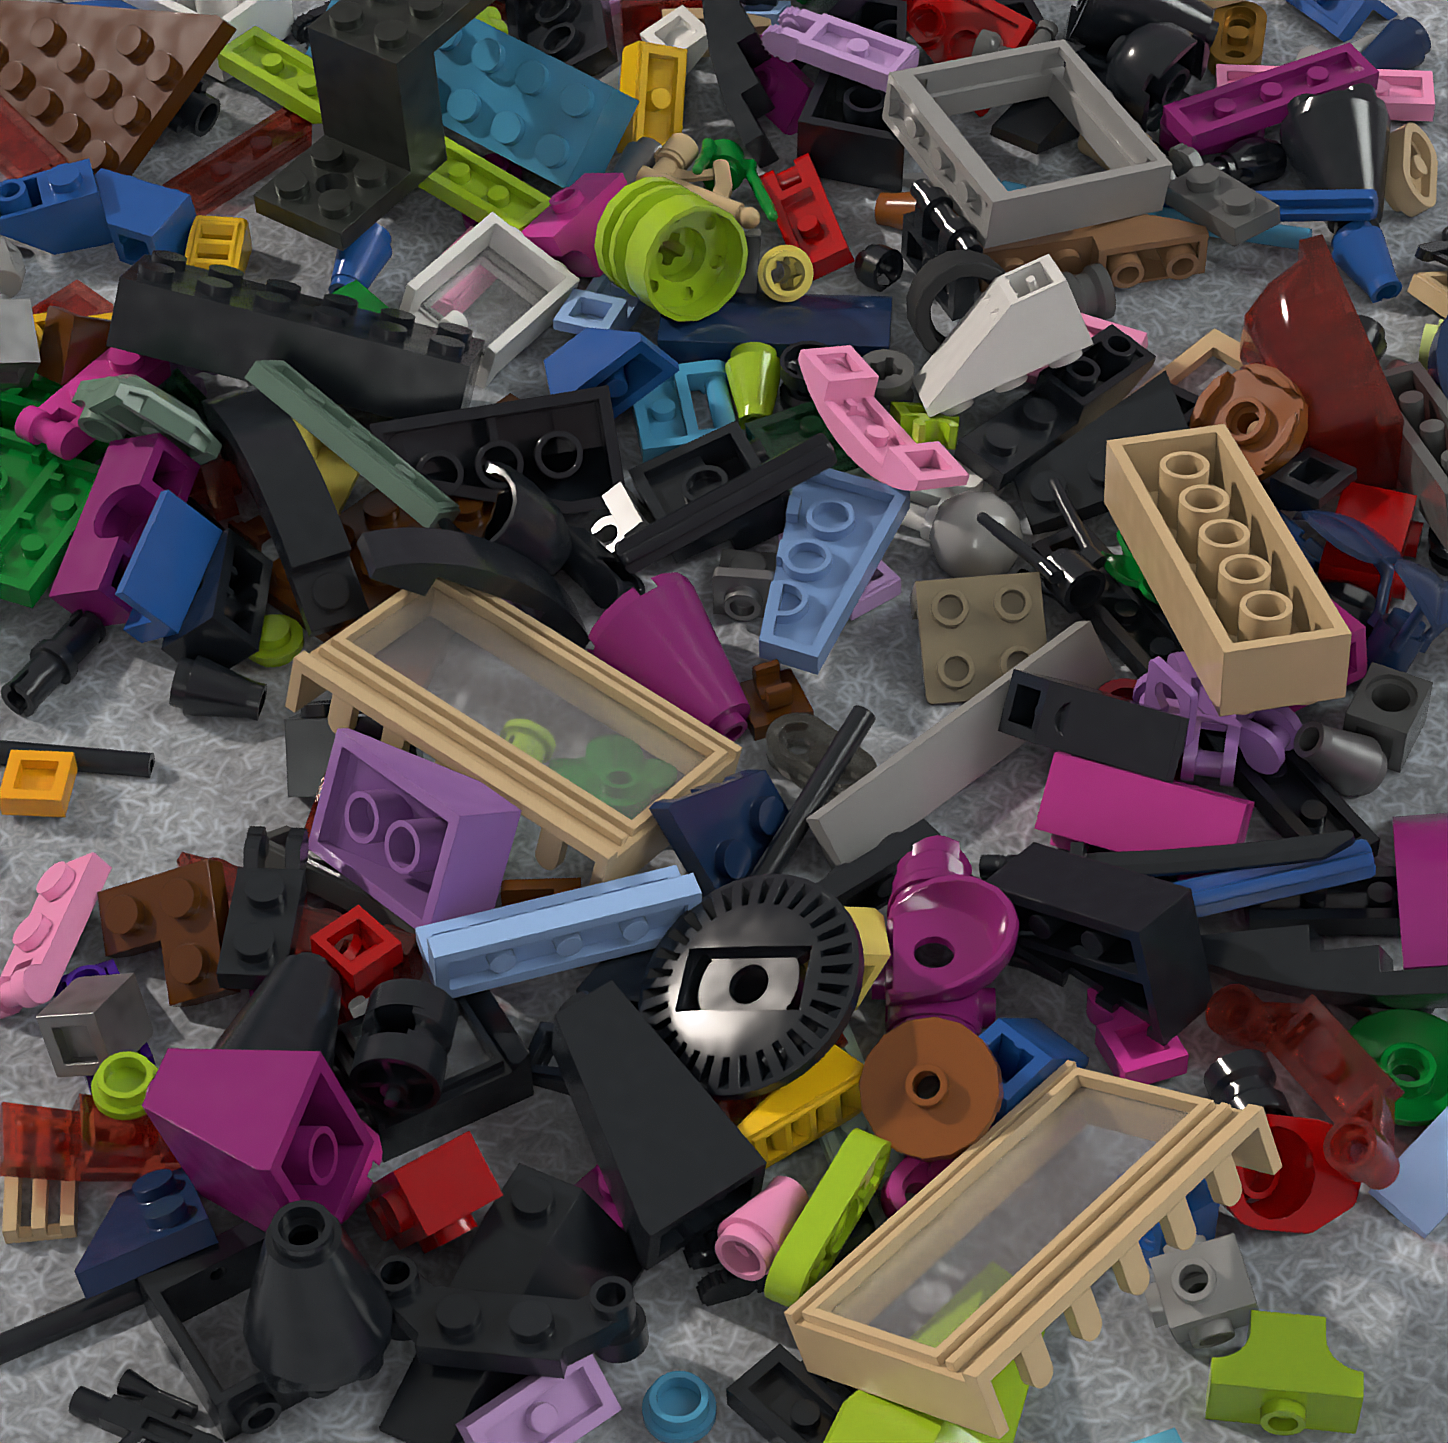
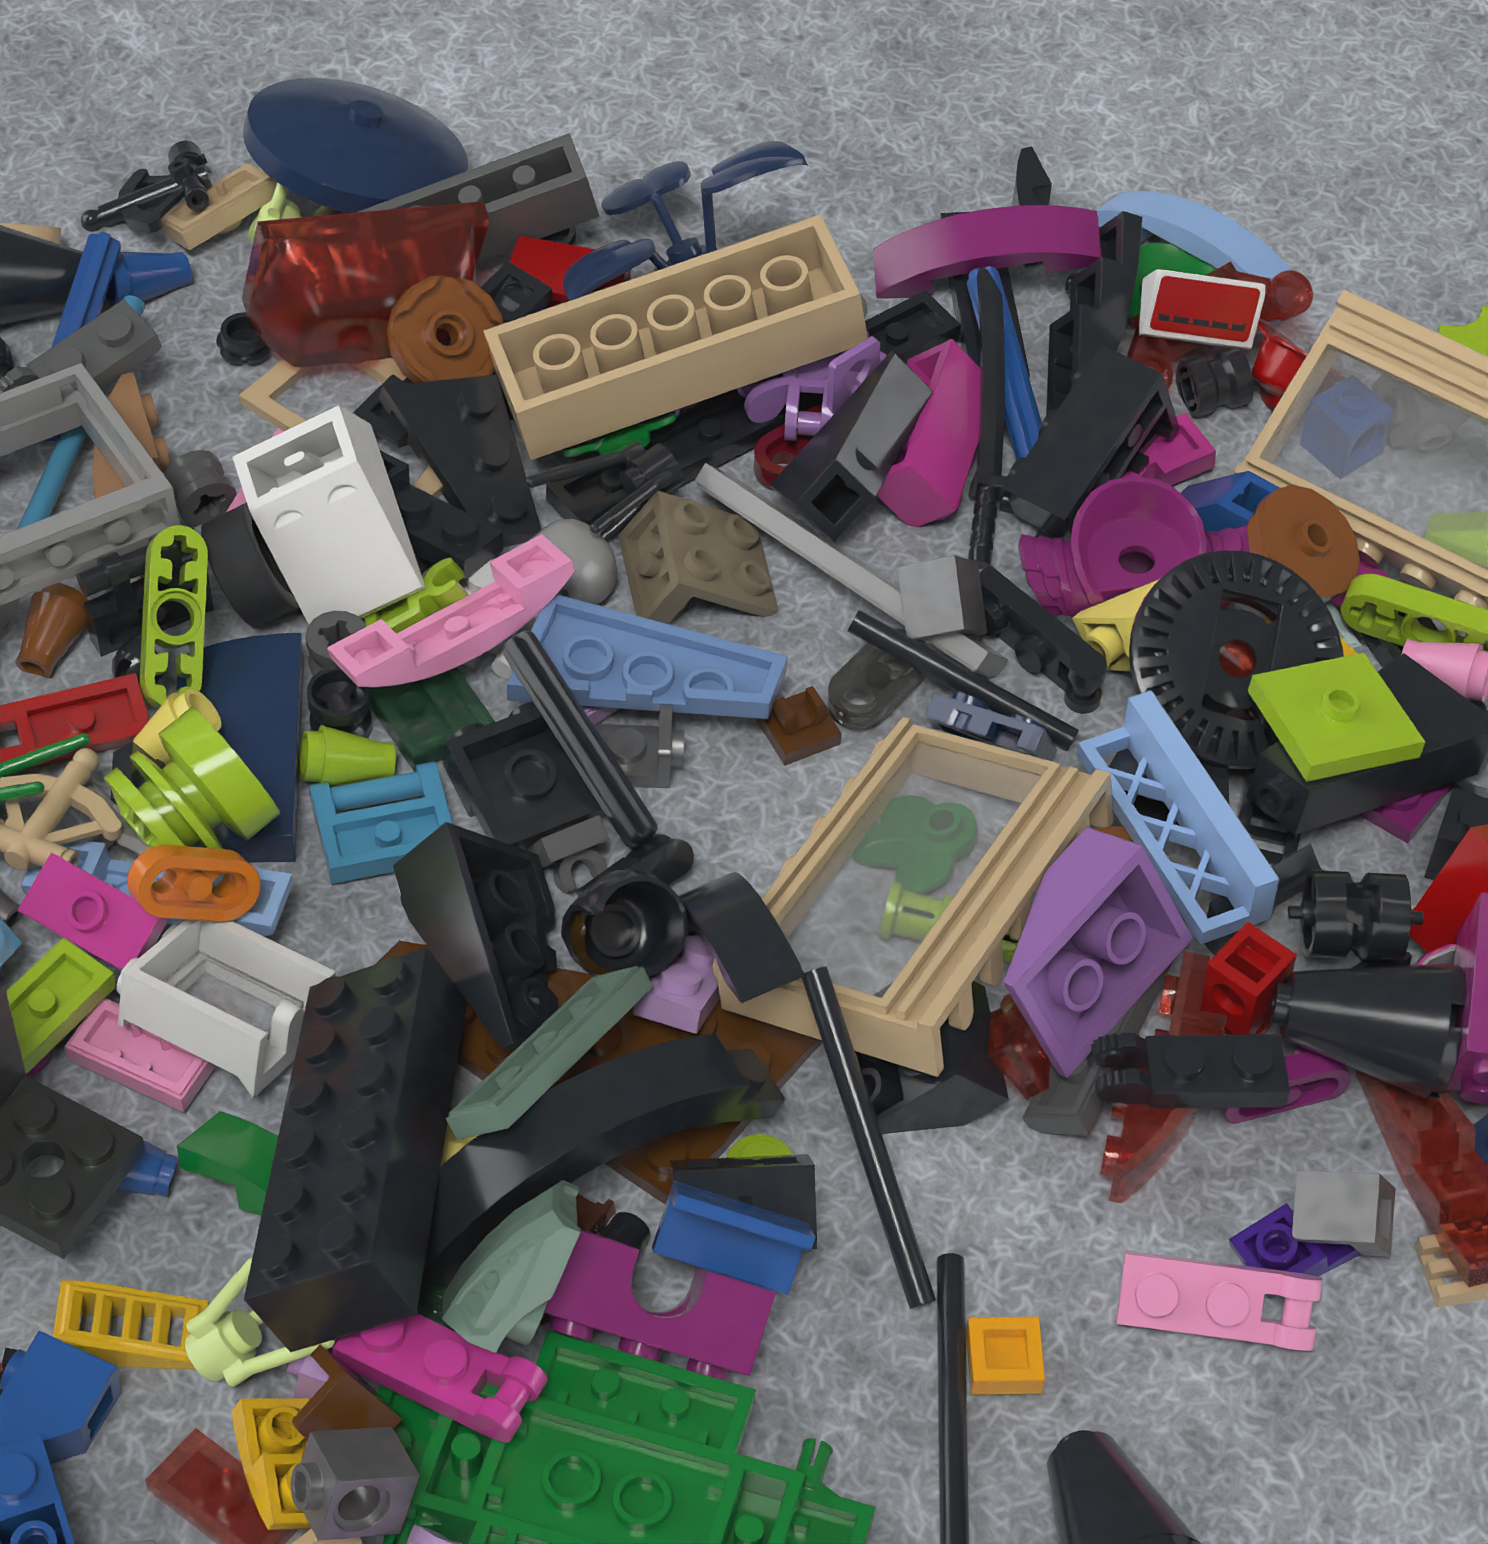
camera: 100 degrees left, 5 degrees up
(53, 662) = (824, 1376): black pin -> none
(122, 1085) = (1429, 1156): lime plate -> none
(173, 911) = (1187, 1162): reddish brown plate -> none
(215, 691) = (847, 1210): black cone -> none
(247, 666) = (868, 1137): none -> black piece
(574, 247) = (187, 883): none -> orange plate
(612, 358) = (355, 875): blue slope -> none
(651, 1051) = (1335, 716): none -> lime plate
(674, 652) = (775, 788): magenta cone -> none
(844, 253) = (160, 570): none -> lime beam
(890, 789) = (942, 598): none -> flat silver panel
(1319, 1047) = (1200, 309): none -> red slope

